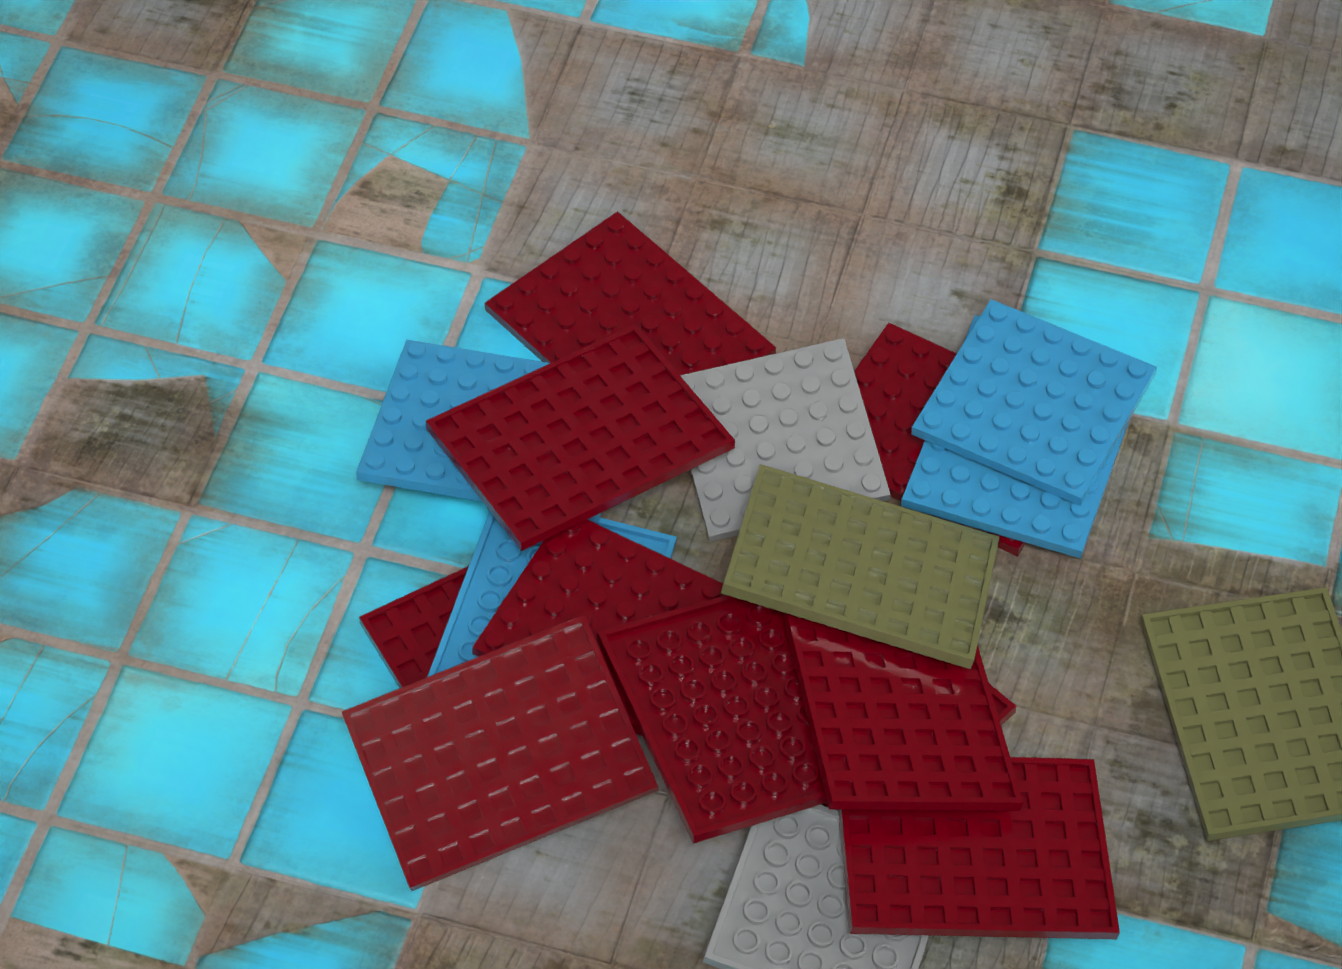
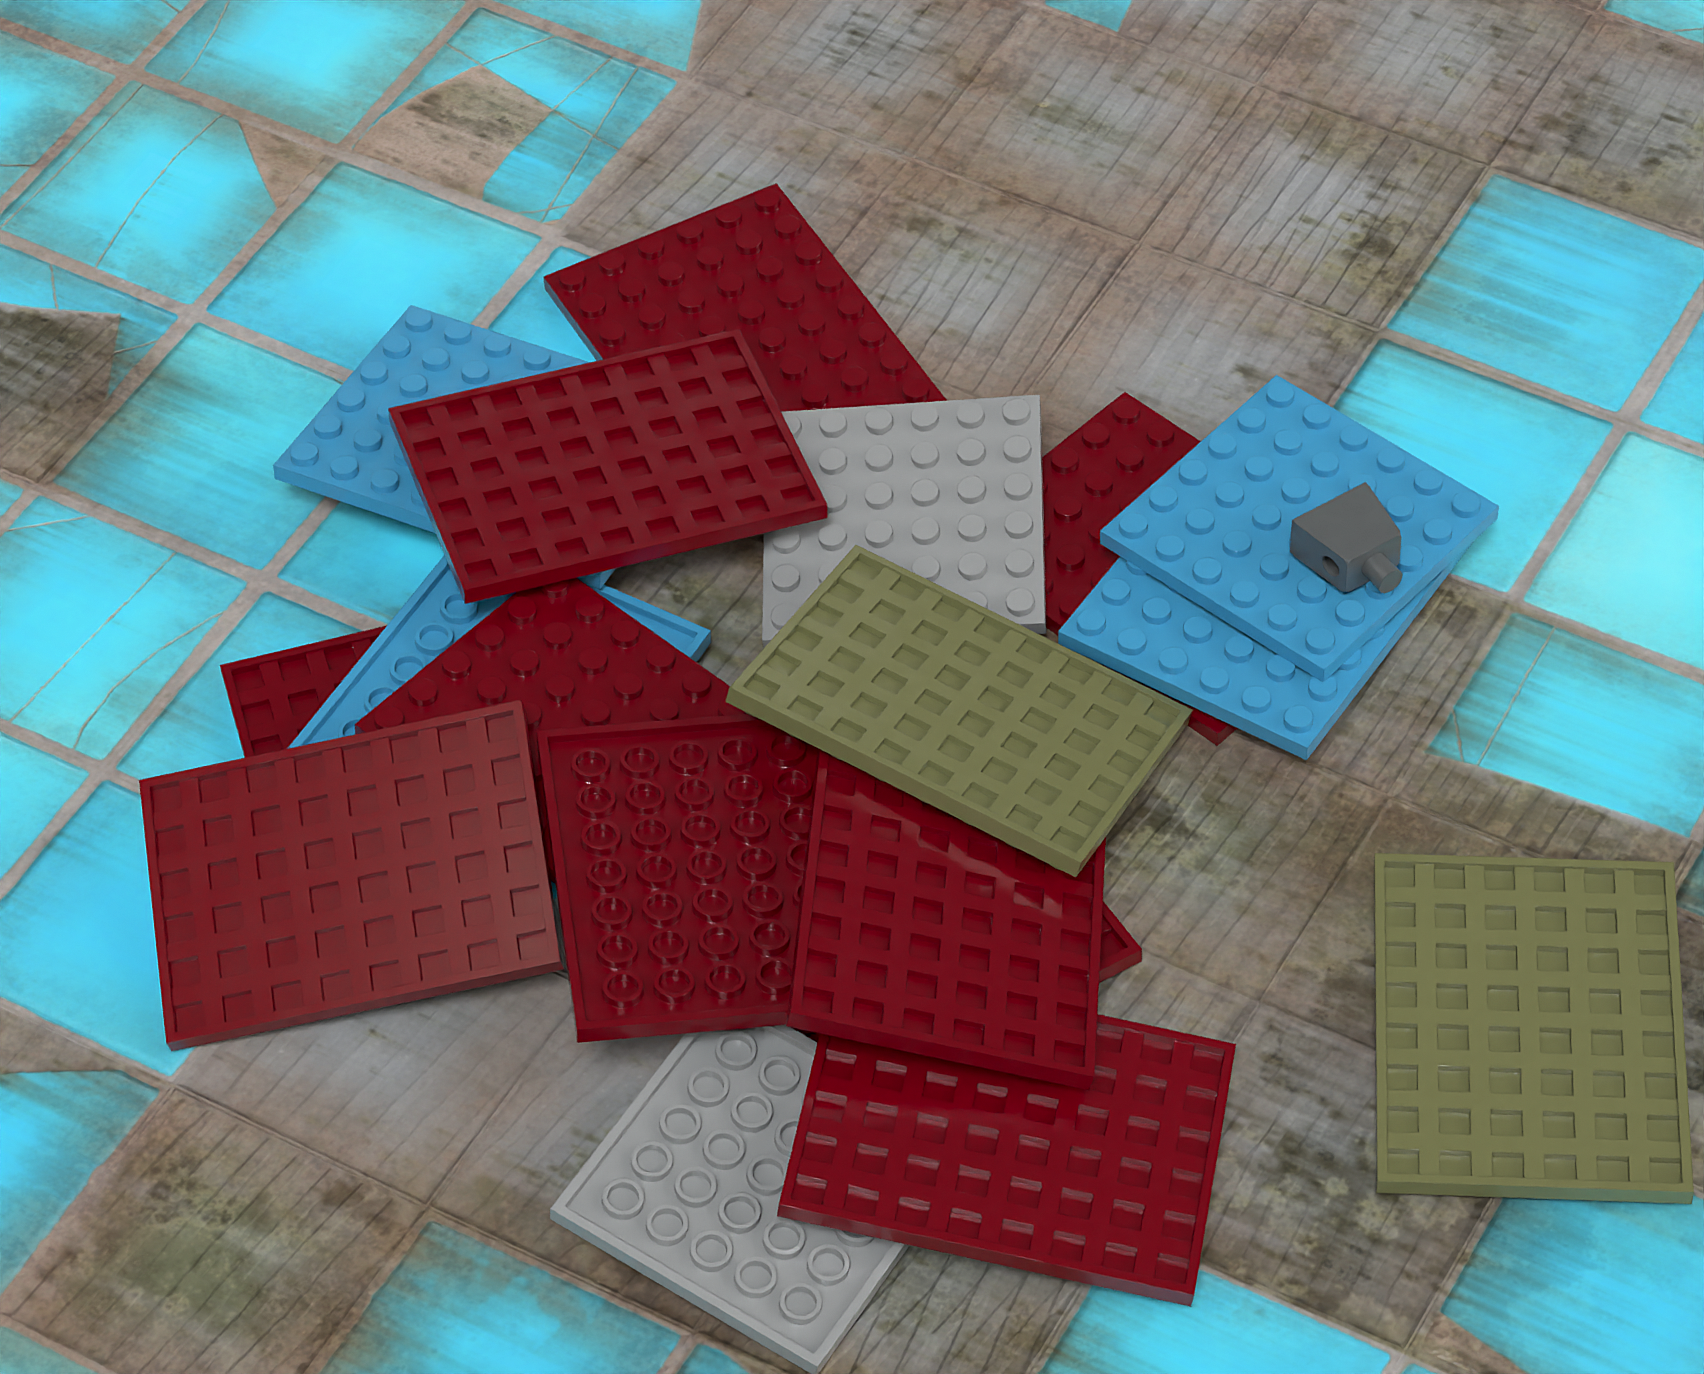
camera: 15 degrees right, 5 degrees down
(1078, 410) = (1350, 541): none -> dark grey torso

